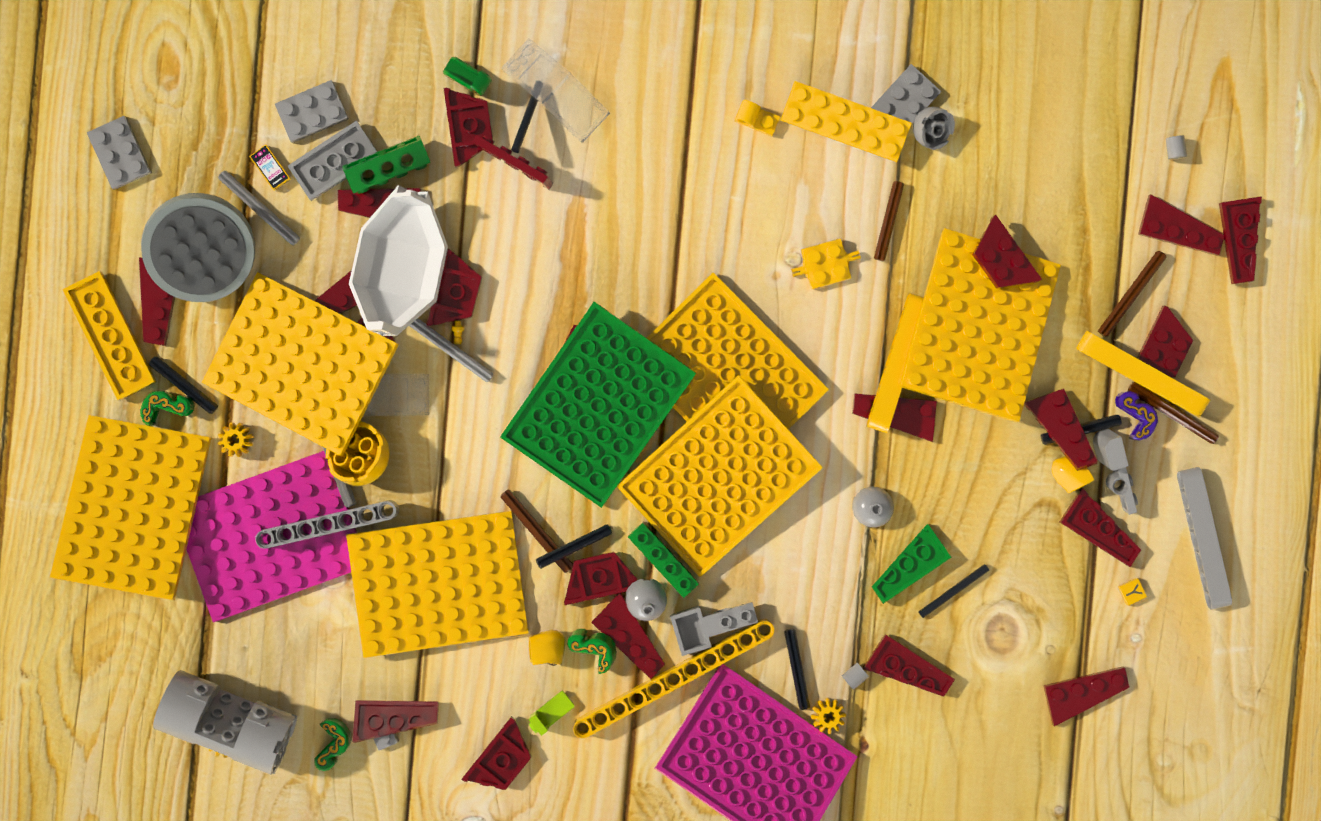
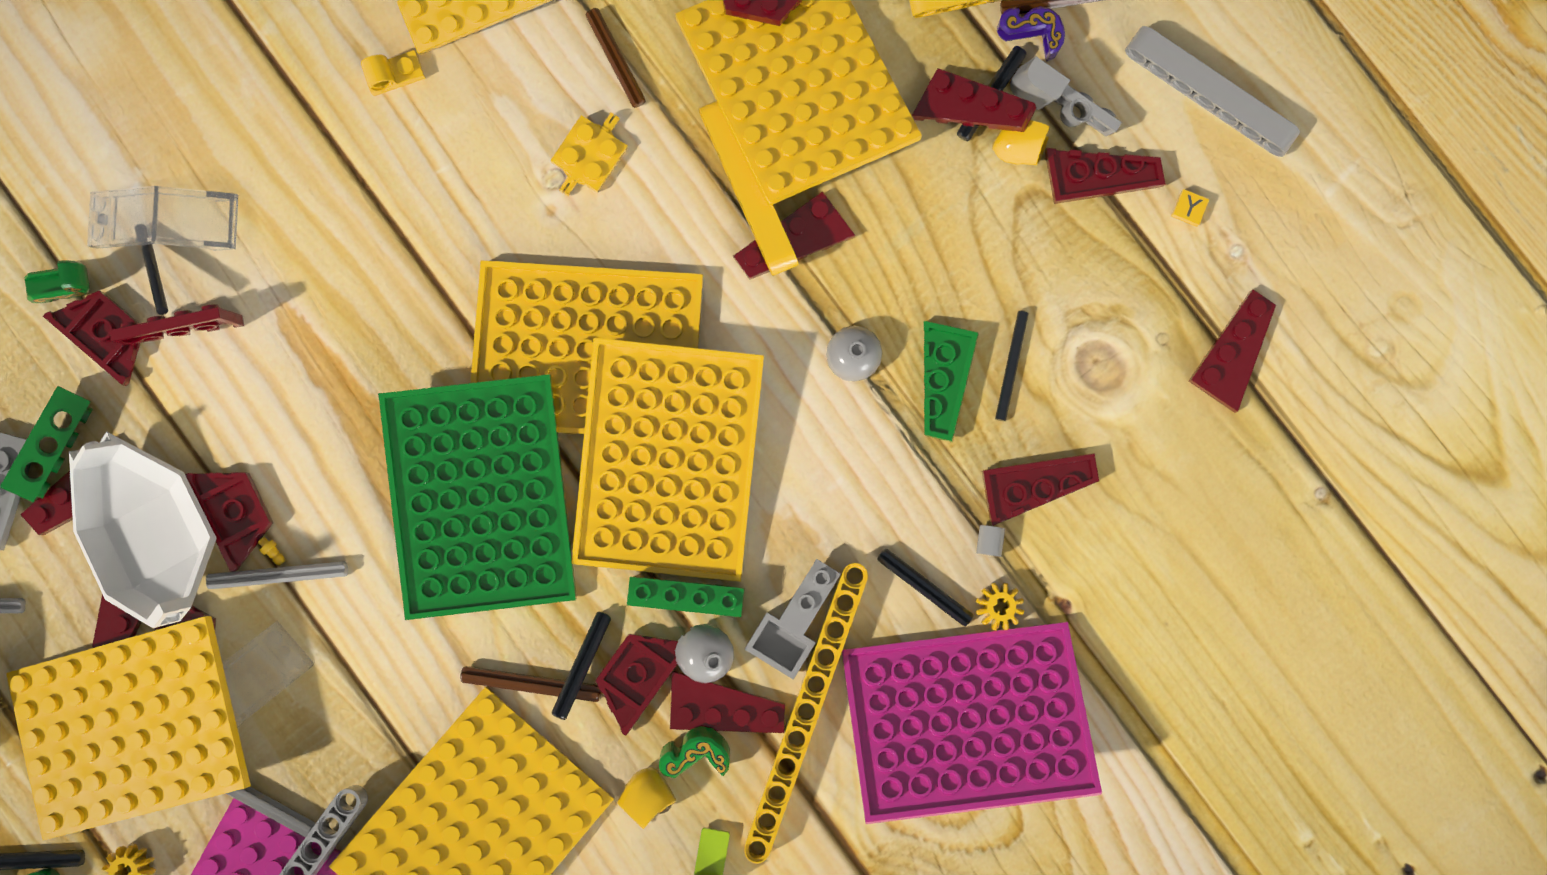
camera: 40 degrees left, 5 degrees down
(363, 459) = (276, 769): yellow cylinder -> none

